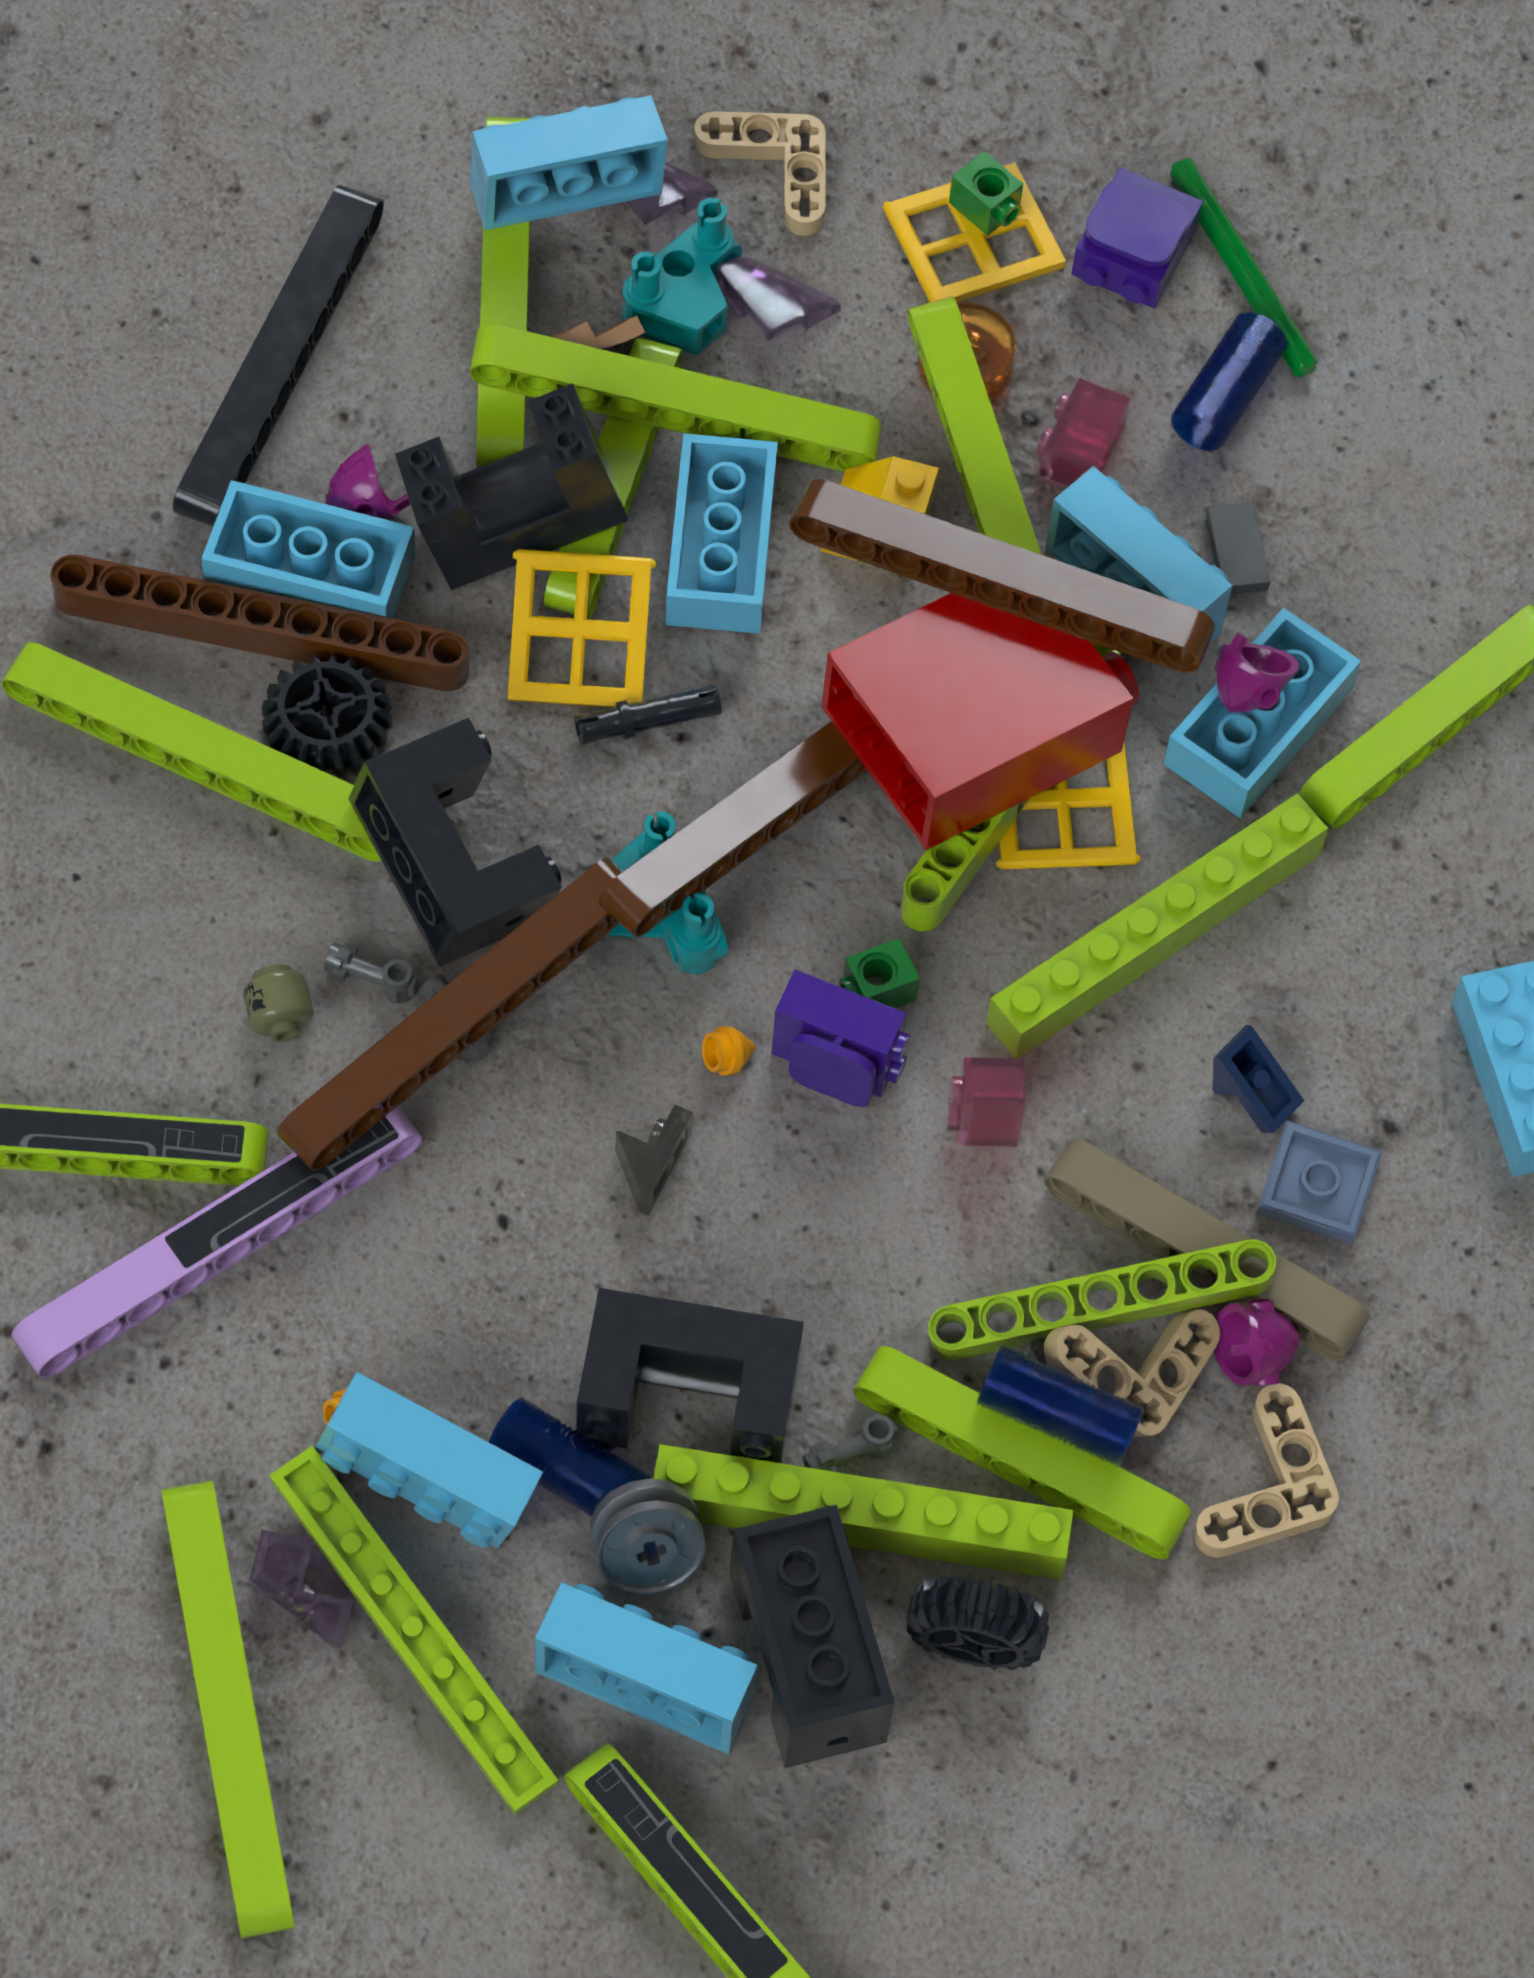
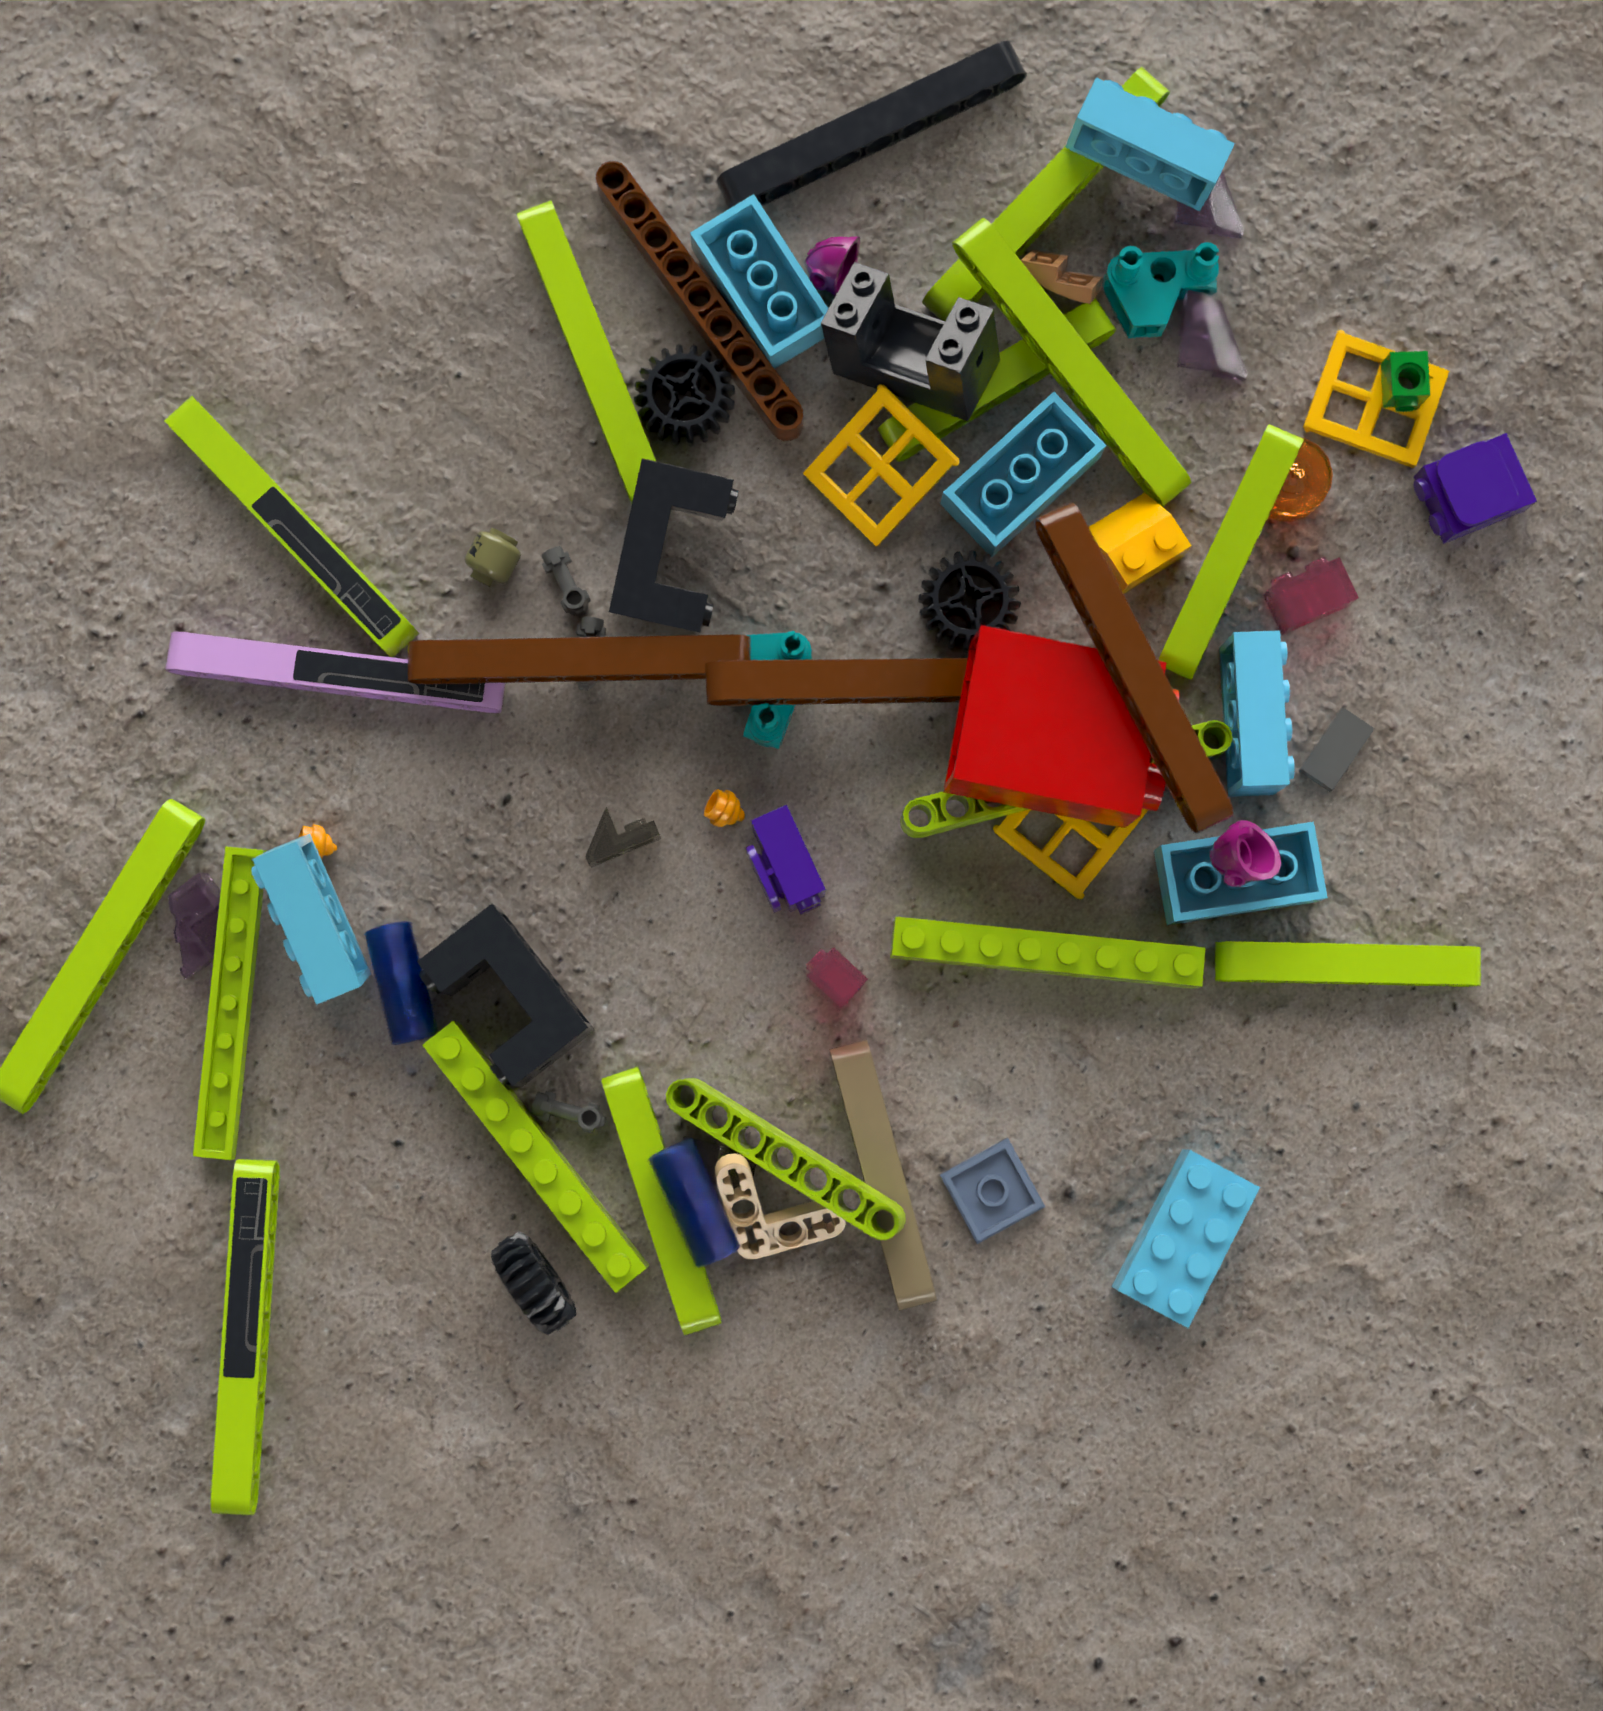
camera: 45 degrees right, 20 degrees up
(645, 1666) = (329, 1142): medium azure brick -> none
(647, 1536) = (397, 1068): flat silver wheel -> none
(654, 713) = (875, 555): black pin -> none
(771, 659) = (953, 606): none -> black gear
(784, 146) = (1313, 238): tan beam -> none
(813, 1635) = (425, 1211): black piece -> none
(884, 961) = (867, 837): green brick -> none
(1229, 381) = (1440, 634): clear blue piece -> none
(1243, 265) = (1525, 564): green axle -> none
(1254, 1342) = (853, 1259): magenta helmet -> none
(1256, 1079) = (1008, 1102): dark blue slope -> none
(1293, 1481) = (801, 1355): tan beam -> none

